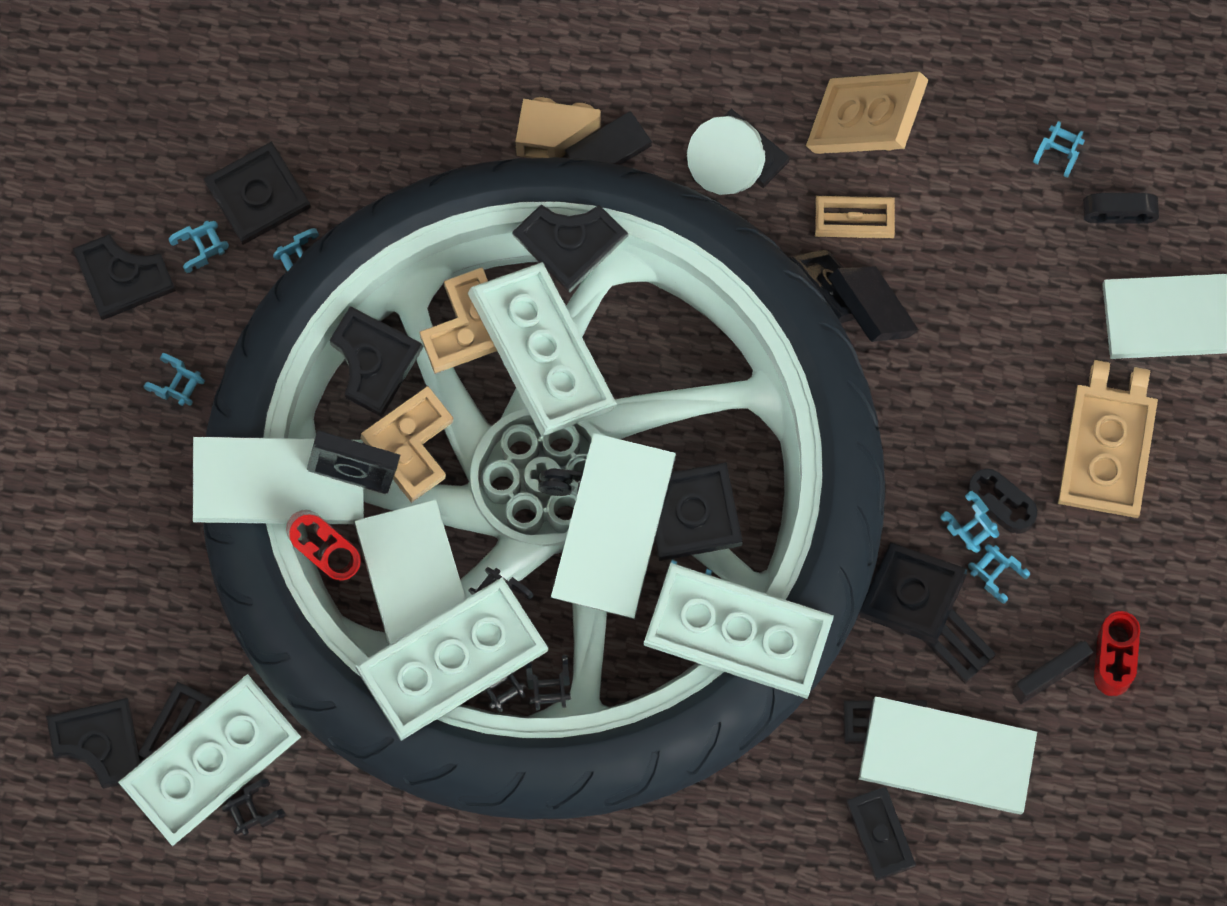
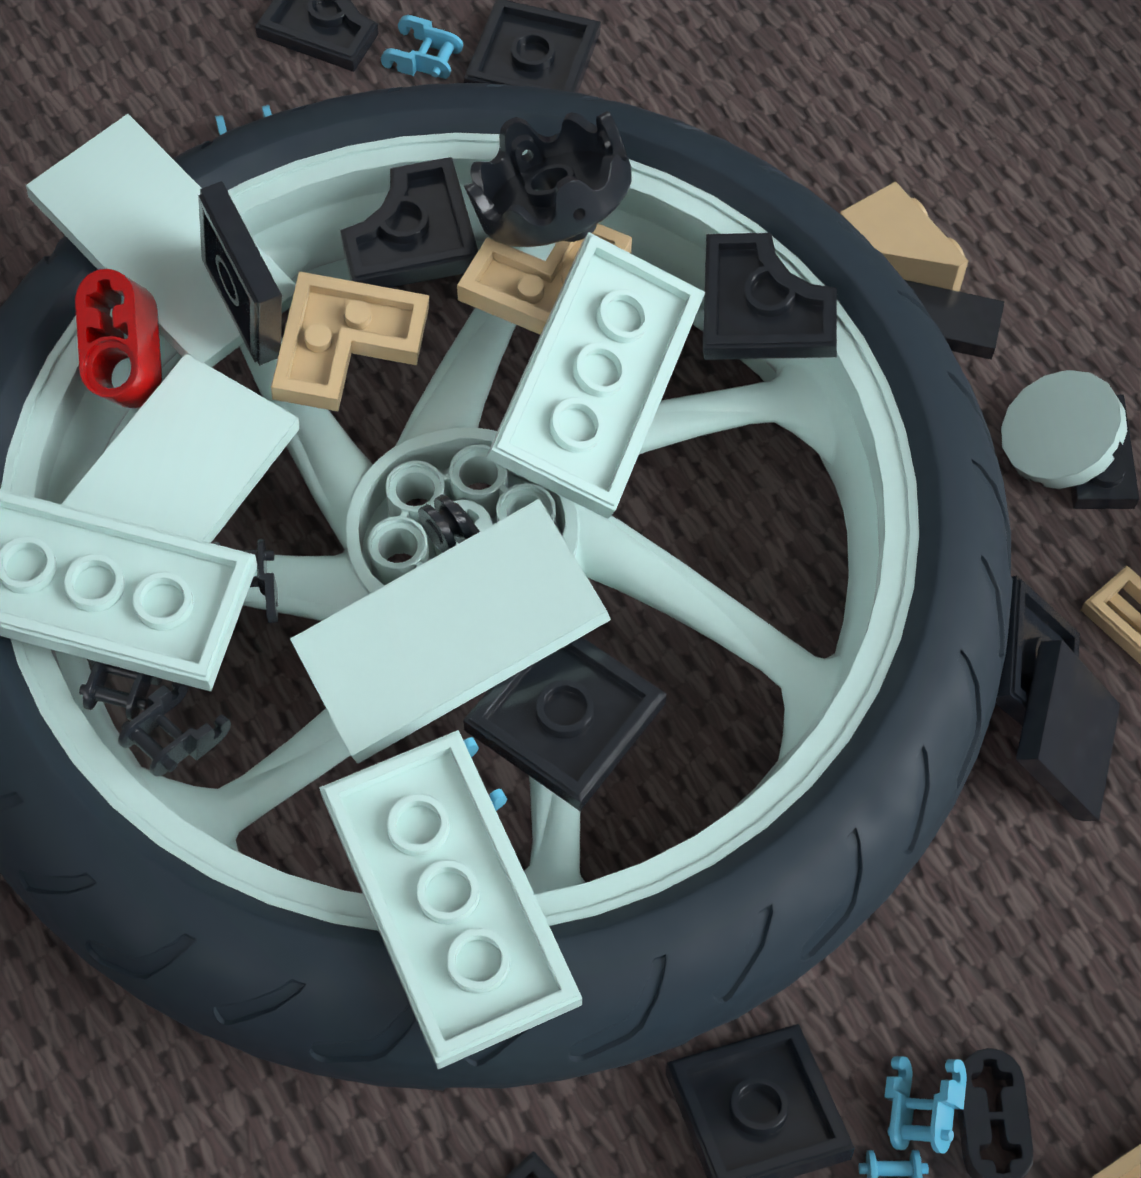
camera: 45 degrees right, 10 degrees down
(400, 273) = (556, 187): none -> black plate

